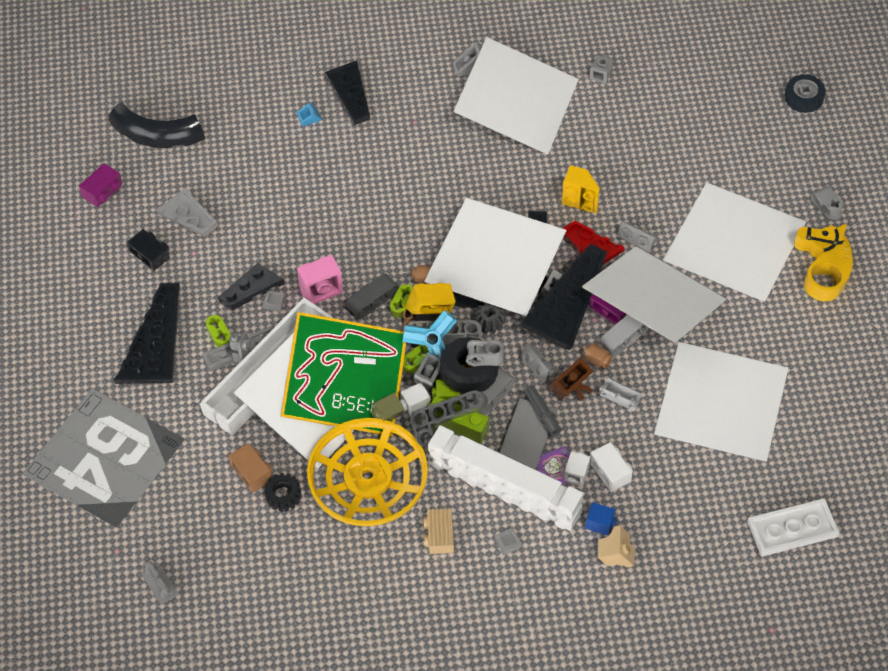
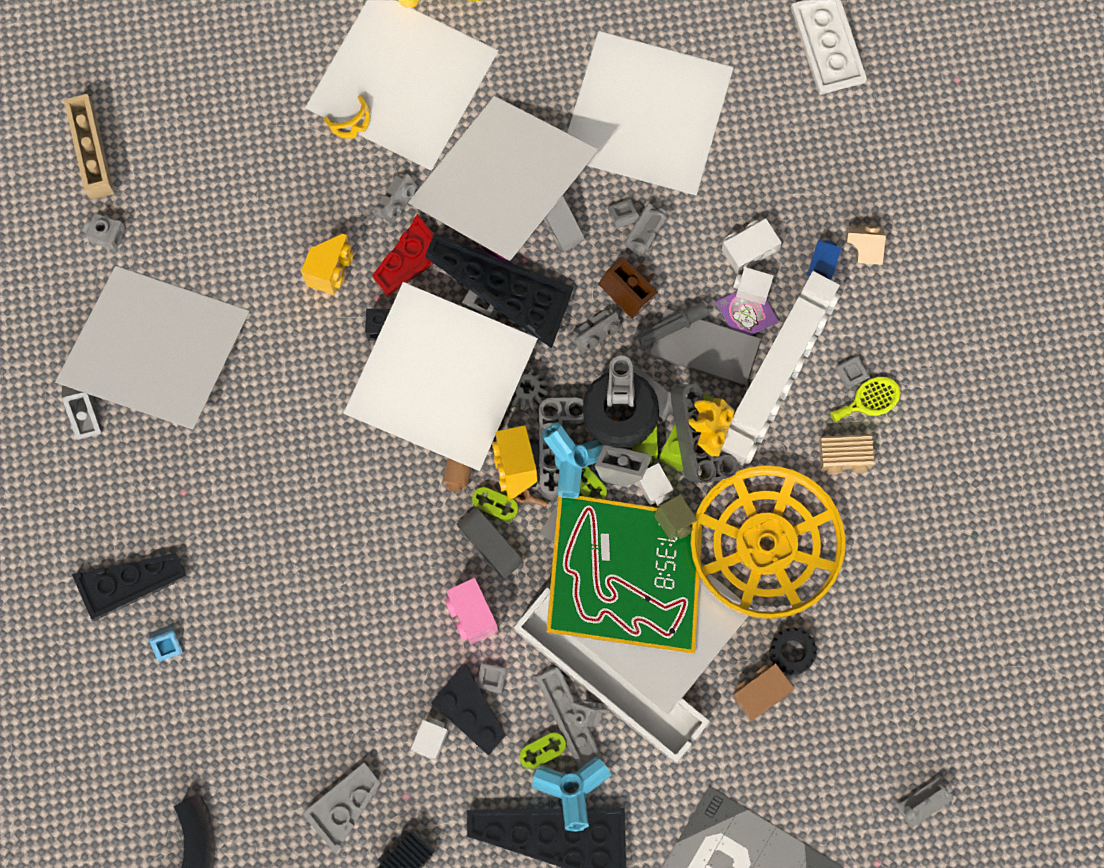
camera: 90 degrees left, 20 degrees up
(187, 344) = (574, 803): none -> medium azure piece
(230, 261) = (430, 739): none -> white brick
(453, 416) = (713, 424): none -> yellow plate
(472, 528) = (838, 414): none -> neon yellow piece
(597, 356) = (588, 255): medium nougat brick -> none
(633, 380) = (623, 213): none -> light grey tile
(662, 54) = (88, 146): none -> tan brick
(707, 214) = (356, 127): none -> yellow helmet

